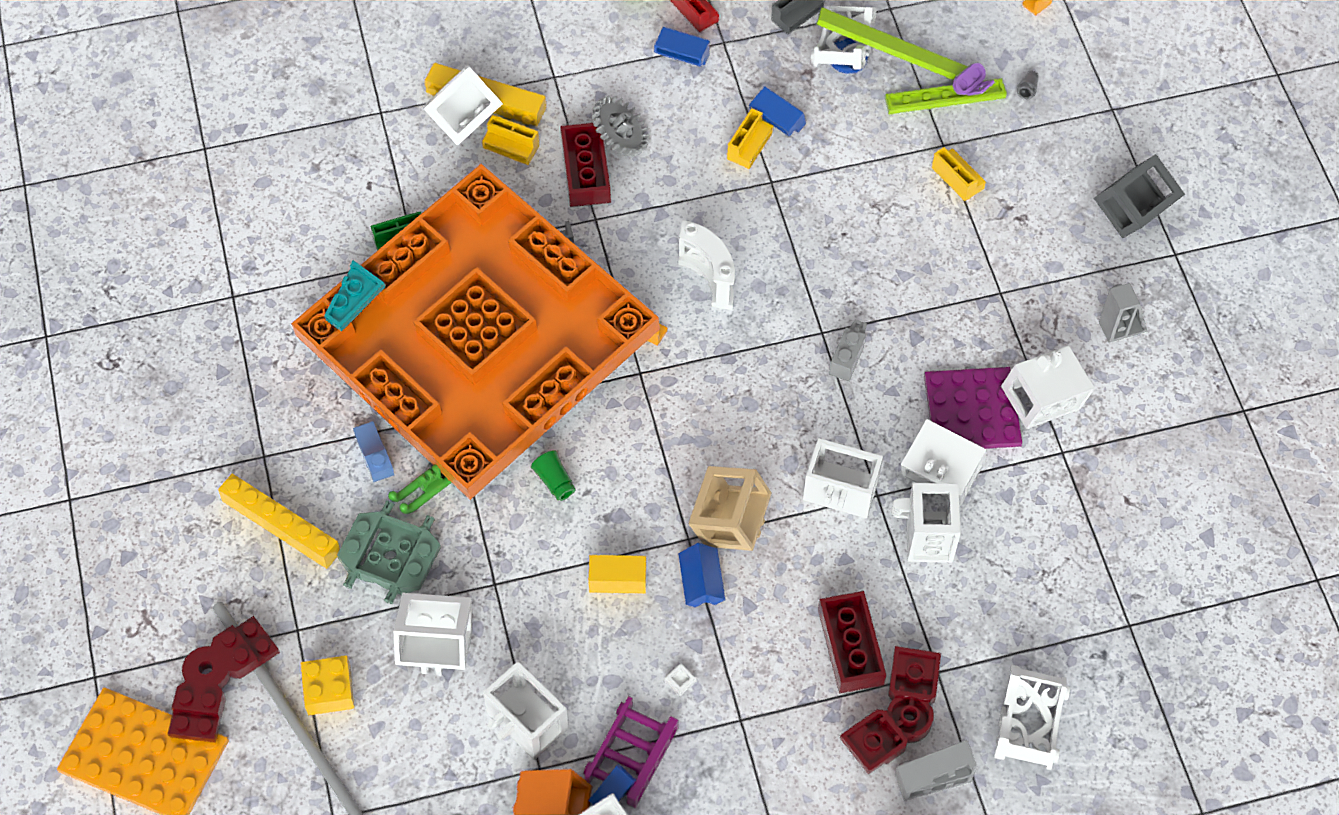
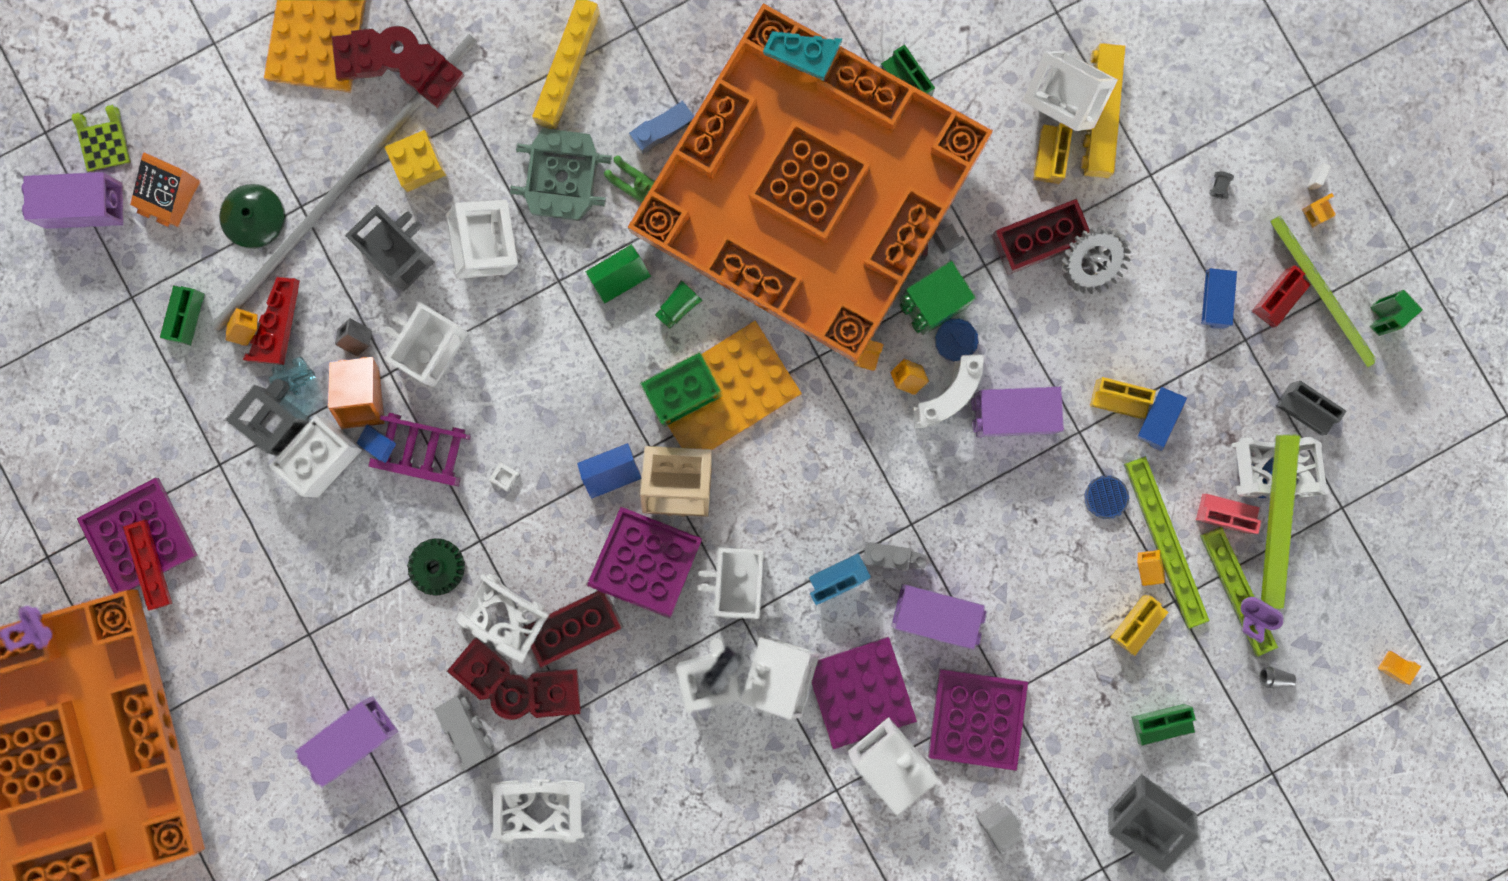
camera: 75 degrees right, 25 degrees up
(412, 722) = (392, 248): none -> dark grey piece
(492, 791) = (353, 337): none -> flat silver panel
(505, 522) = (618, 273): none -> green piece
(581, 25) = (1221, 185): none -> dark grey bush
(617, 574) = (589, 391): yellow piece -> none
(619, 248) = (936, 298): none -> green container
(643, 476) = (681, 389): none -> green container
(649, 459) = (751, 388): none -> light orange plate
(658, 256) = (956, 339): none -> blue tile
(682, 299) = (909, 376): none -> light orange panel
(742, 214) = (1017, 412): none -> medium lavender brick
(757, 781) = (450, 566): none -> dark green gear
(802, 558) = (644, 562): none -> magenta plate
(836, 173) = (1106, 497): none -> tile
(856, 693) = (486, 597): none -> white fence
(860, 395) = (838, 578): none -> dark azure piece
(875, 86) = (1228, 514): none -> coral piece
(888, 138) = (1167, 542): none -> lime tile
(909, 150) = (1151, 568): none -> light orange panel
(914, 322) = (938, 616): none -> medium lavender brick
(924, 489) = (715, 679): none -> black hinge
(1017, 316) = (978, 719): none -> magenta plate
(1052, 175) = (1164, 724): none -> green piece

